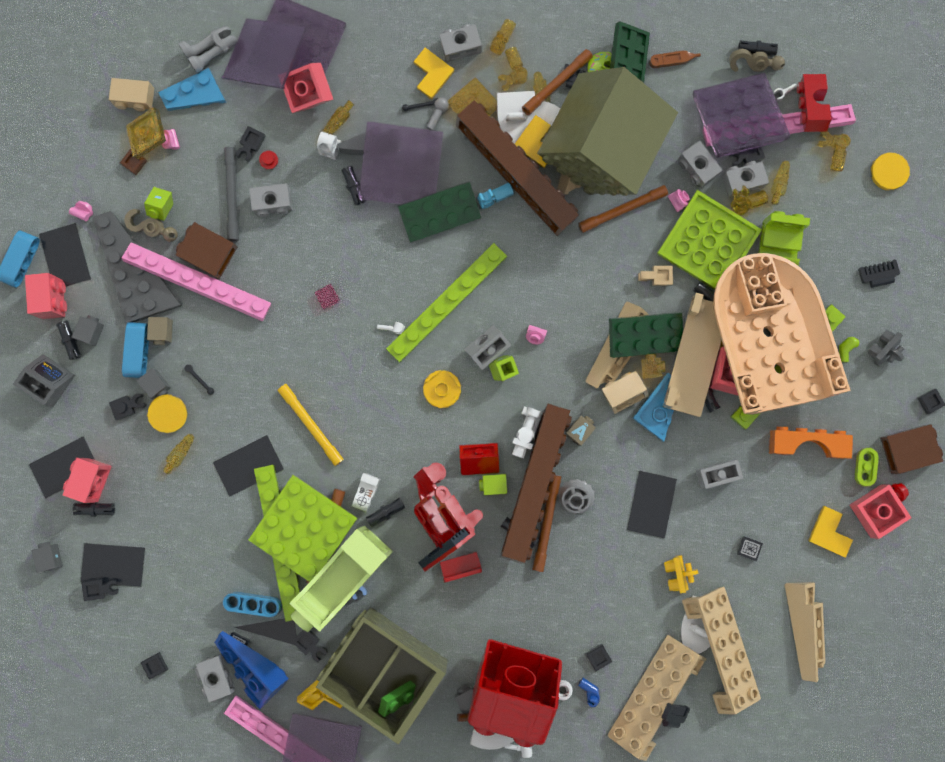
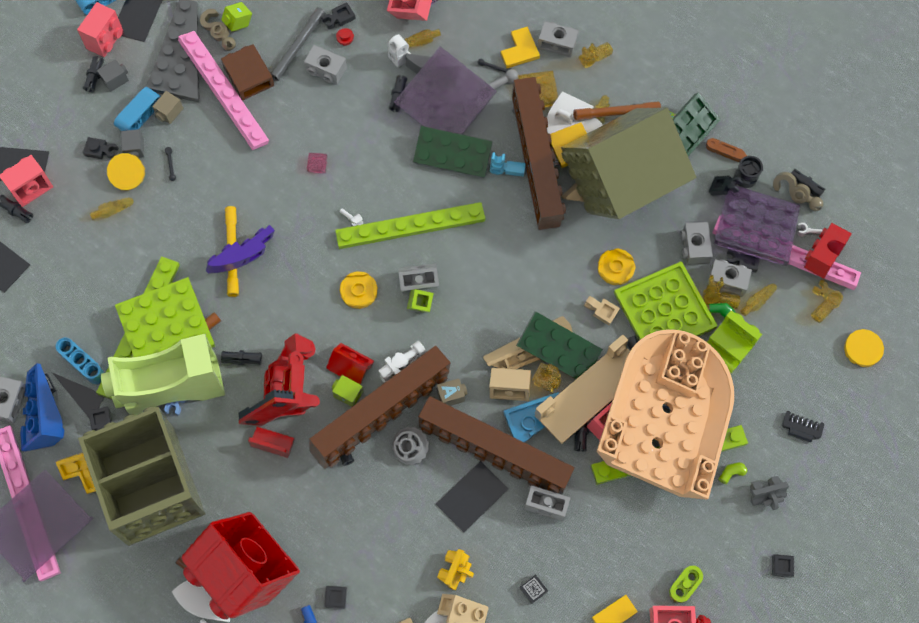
camera: 30 degrees right, 15 degrees down
(44, 380) = (52, 90): dark grey slope -> none
(238, 467) = (148, 249): black piece -> none
(320, 429) = (238, 255): none -> dark purple slope
(366, 492) = (237, 331): white leg -> none
(397, 698) = (130, 503): bright green plate -> none
(519, 74) = (590, 89): clear yellow bar -> none
(535, 335) = (466, 294): bright pink plate -> none
(540, 555) = (346, 475): dark orange piece -> none
(567, 694) = (278, 601): white plate -> none
(595, 221) = (641, 245): dark orange piece -> none
(644, 228) = (616, 266): none -> yellow tile
(652, 454) = (494, 446): none -> reddish brown brick
(679, 199) = (661, 260): bright pink plate -> none
(690, 95) = (722, 185): none -> black plate
(704, 69) = (749, 171): none -> black wheel
(757, 211) = (722, 308): none -> green arm
(834, 445) = (668, 545): orange arch -> none
(912, 449) = (738, 594): reddish brown brick -> none

